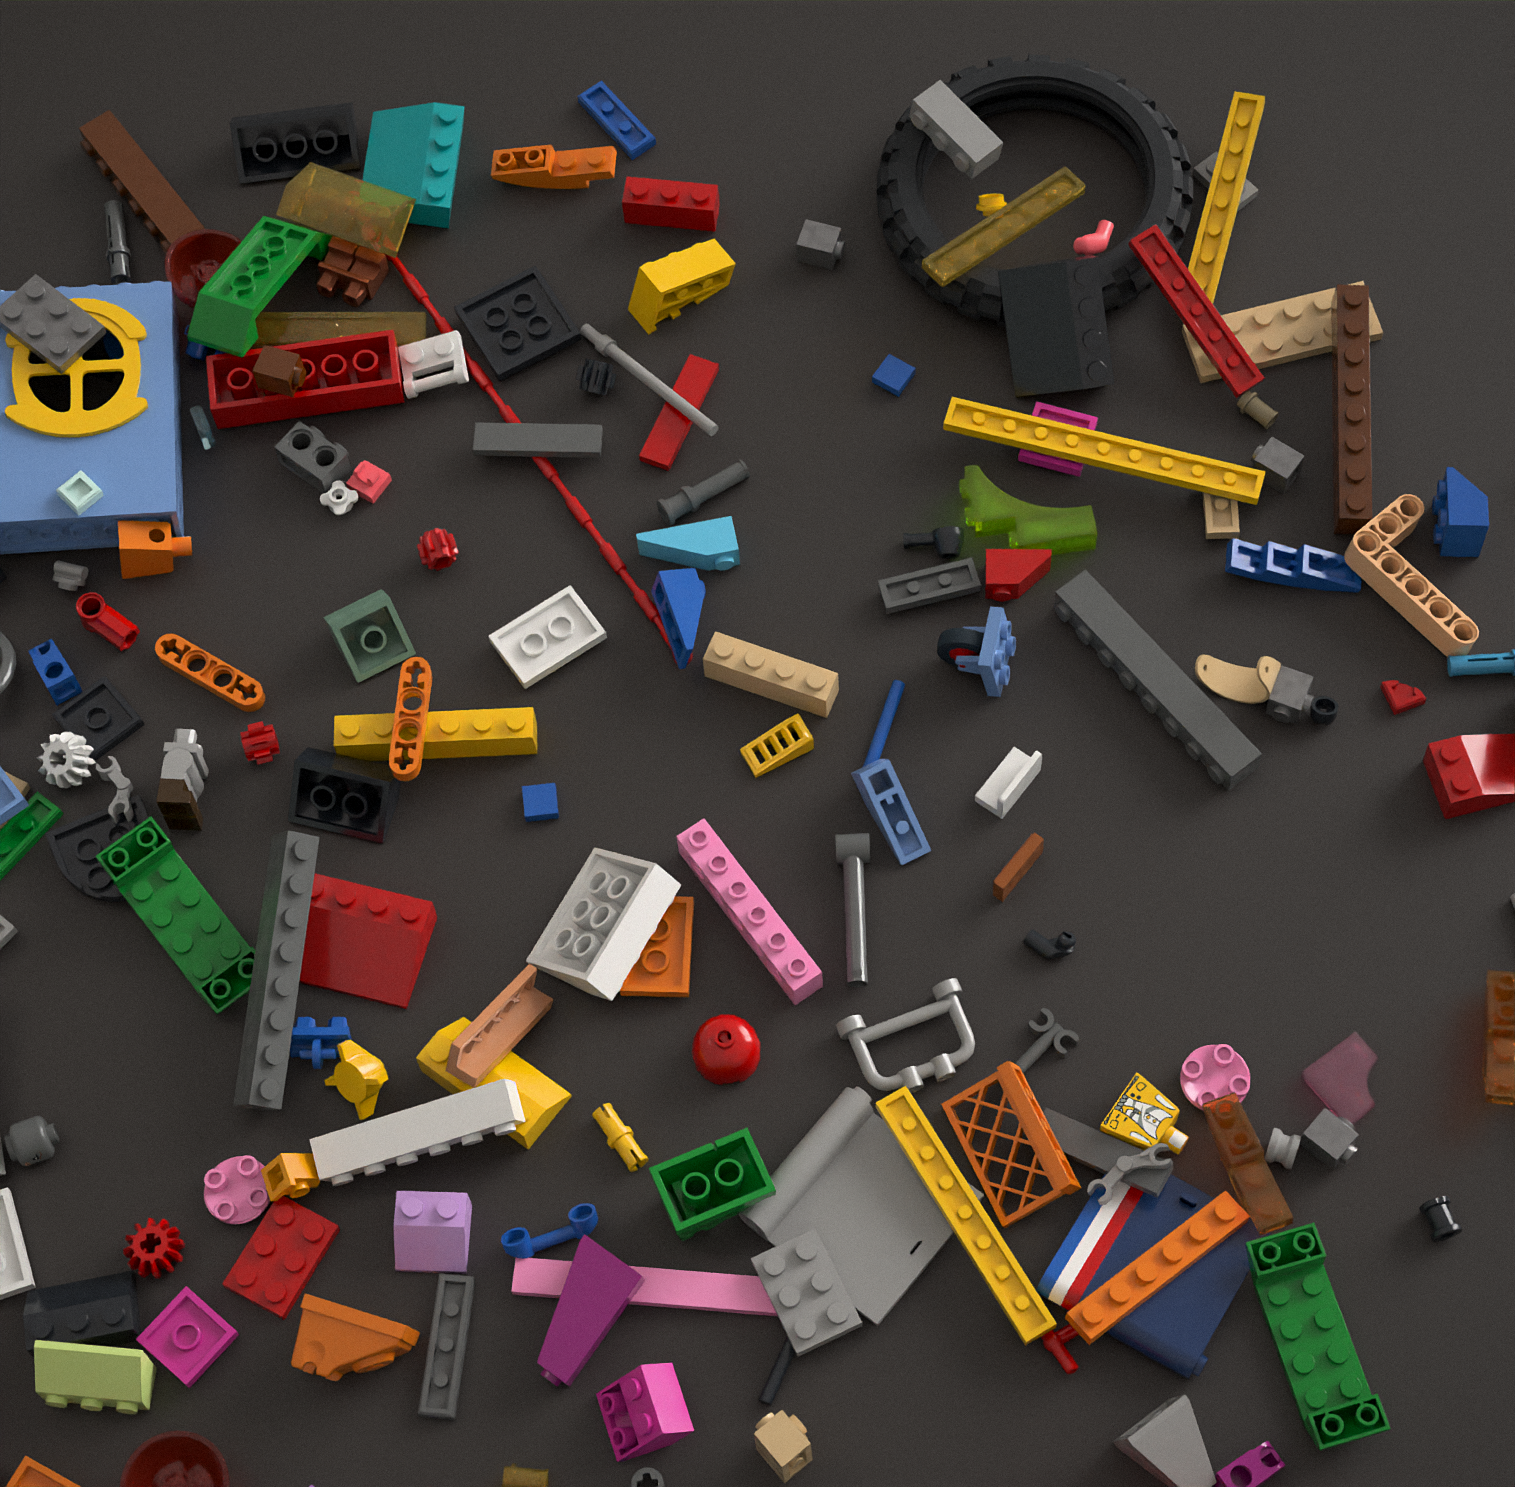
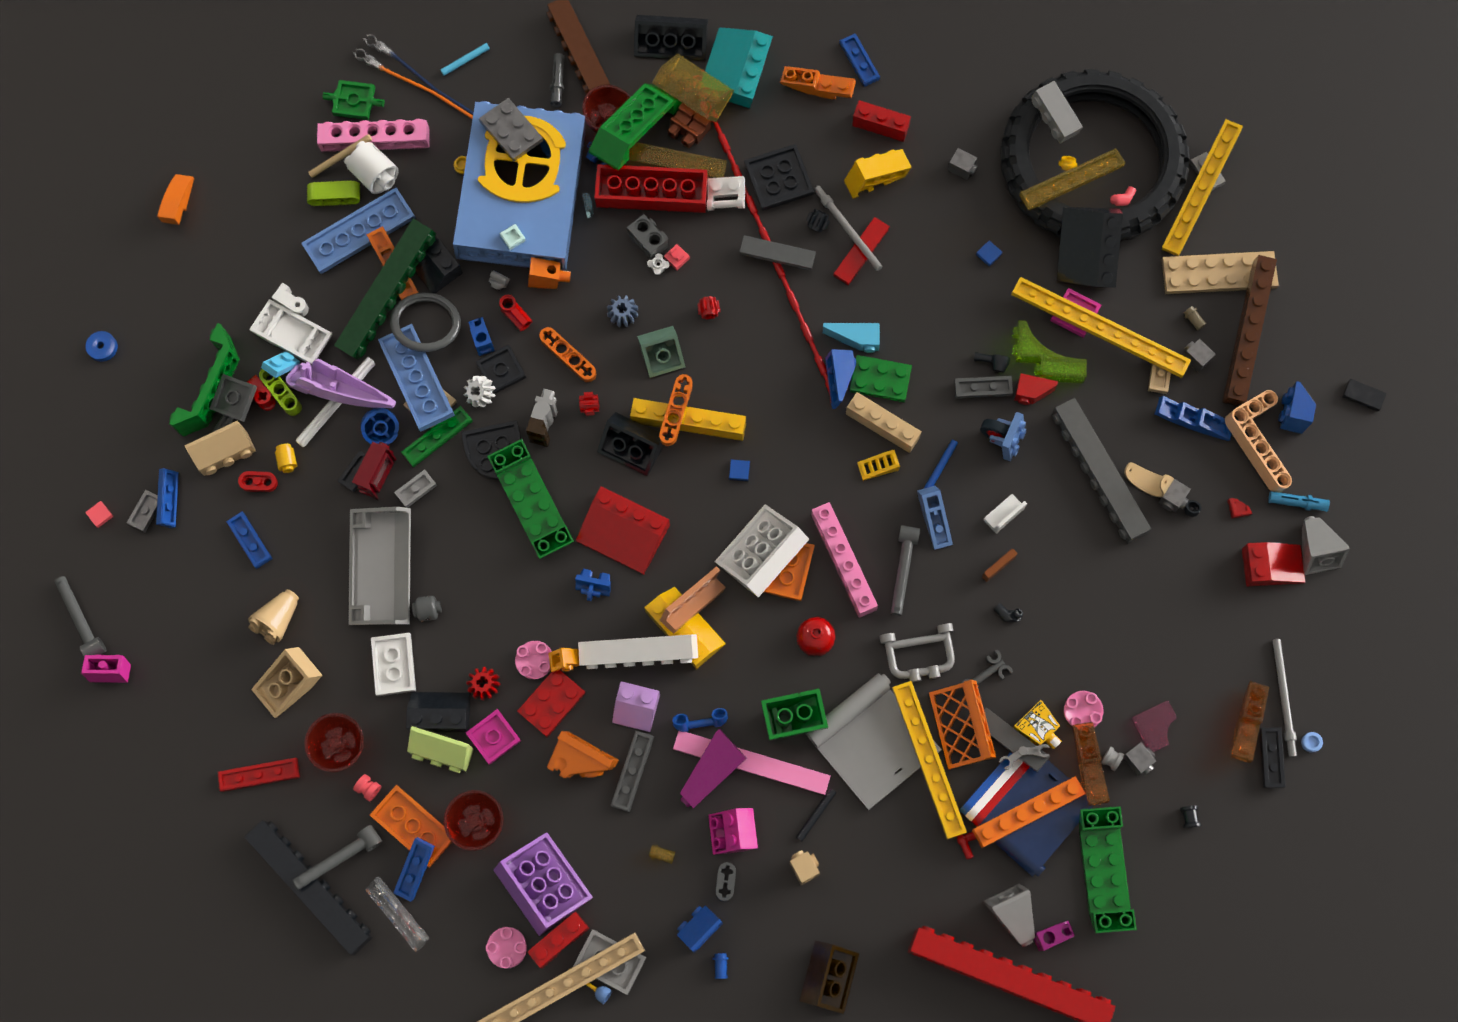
camera: 10 degrees right, 10 degrees up
(121, 802) = (509, 414): light grey piece -> none
(276, 971) = (576, 542): dark grey brick -> none
(279, 371) = (637, 183): reddish brown brick -> none
(279, 584) = (625, 317): none -> sand blue gear
(358, 1077) = (611, 610): yellow piece -> none
(547, 637) = (761, 373): white plate -> none
(620, 1137) = (748, 674): yellow pin -> none
(690, 498) = (858, 305): dark grey pin -> none
(753, 606) = (881, 378): none -> green plate
(806, 1292) = (833, 784): light grey plate -> none
(1196, 311) = (1172, 253): red plate -> none

